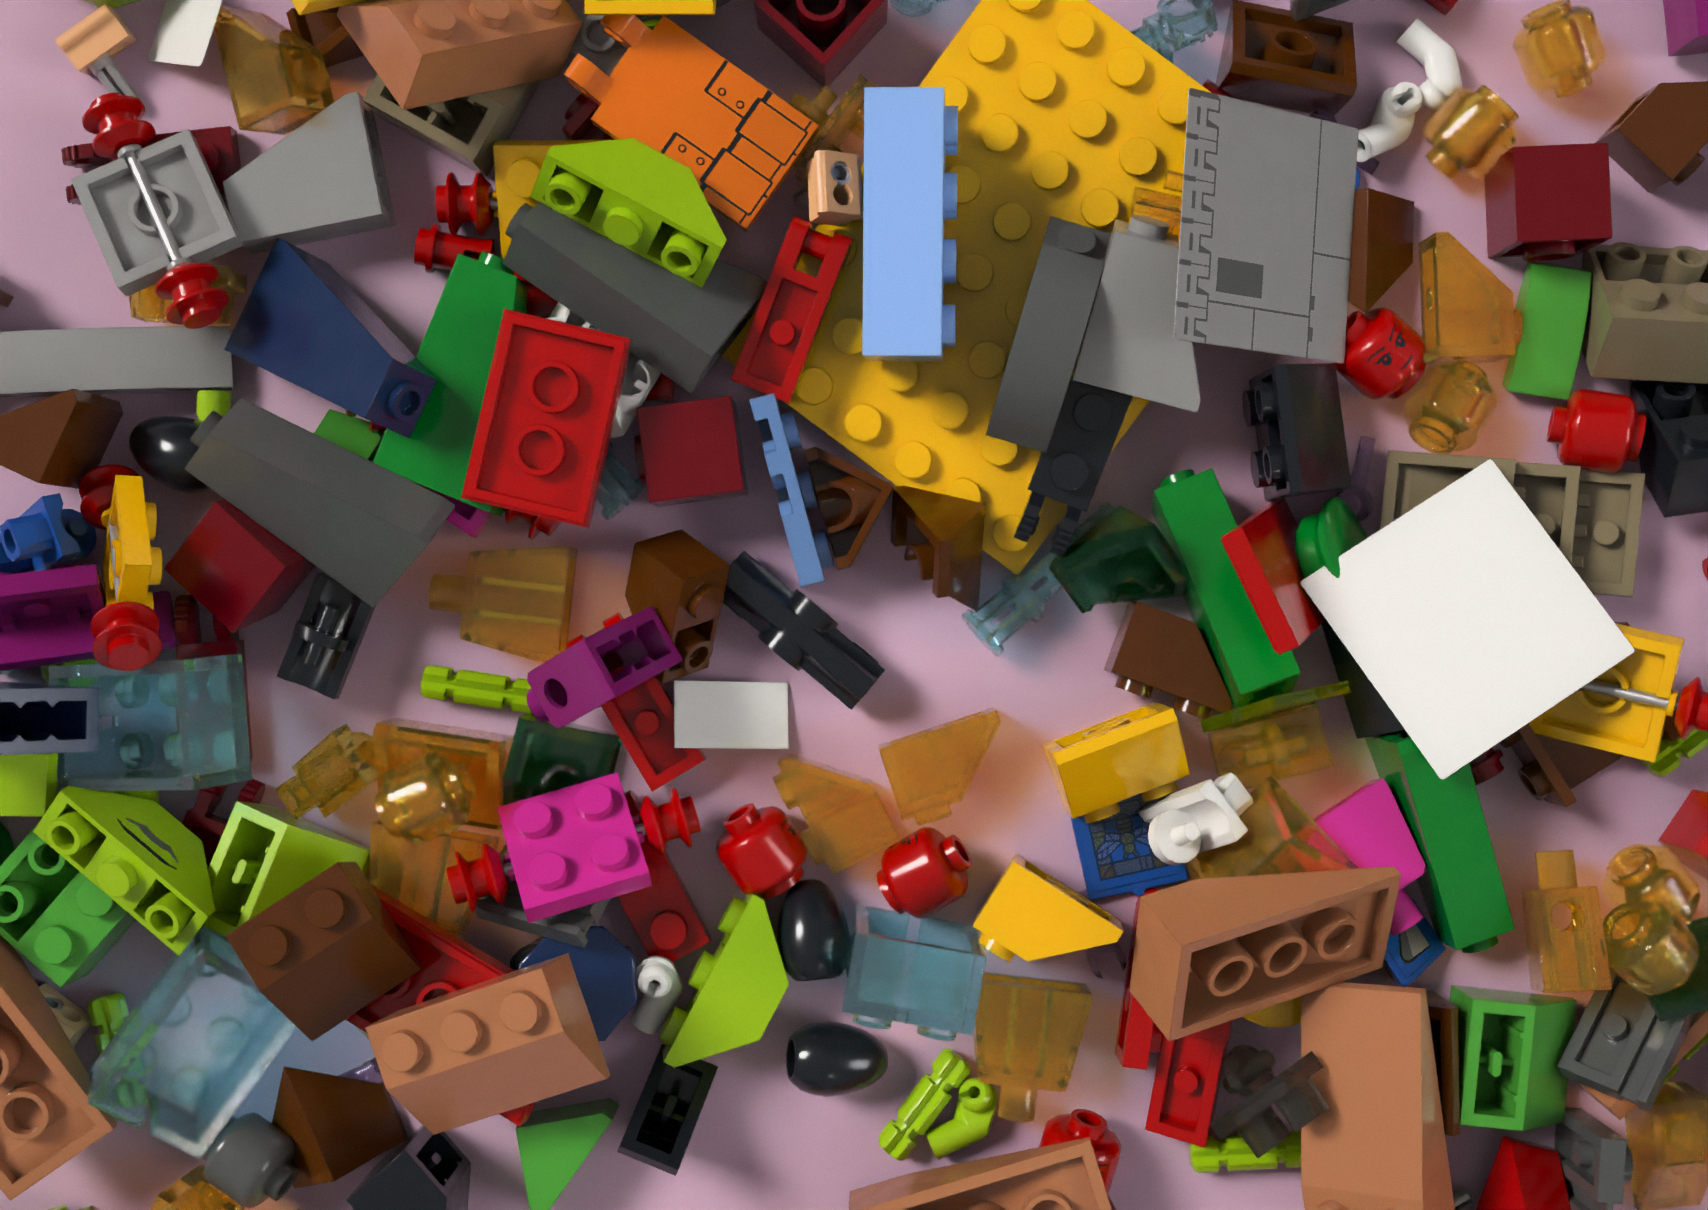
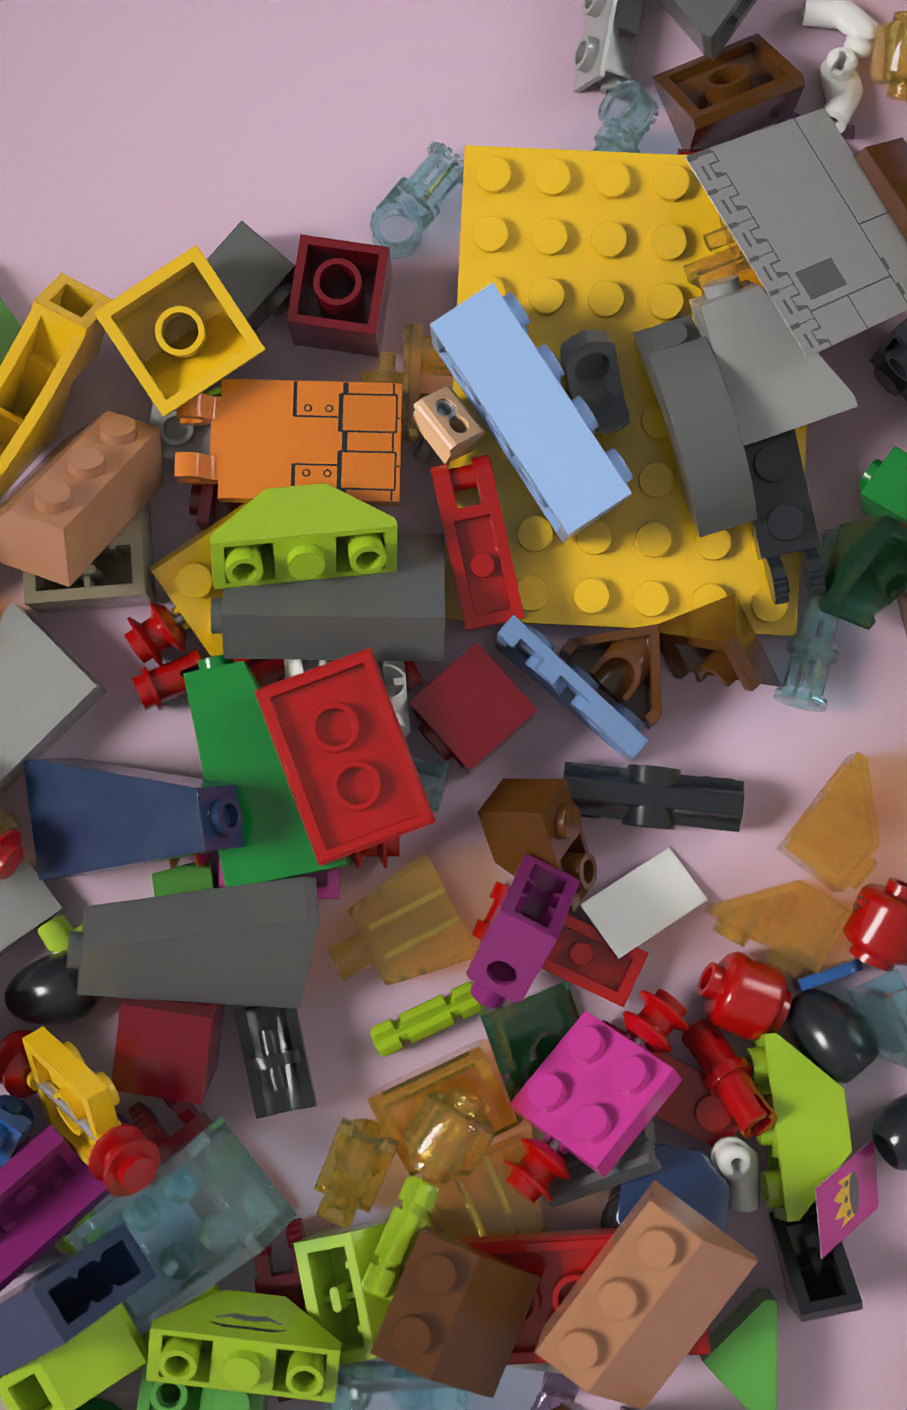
camera: 30 degrees left, 5 degrees down
(365, 833) = (400, 1237): none -> lime axle
(699, 911) = (729, 1078): none -> red pin
(729, 1076) = (846, 1198): none -> dark pink sticker
(846, 880) = (827, 974): none -> blue piece
(987, 235) = (593, 374): none -> dark grey hair

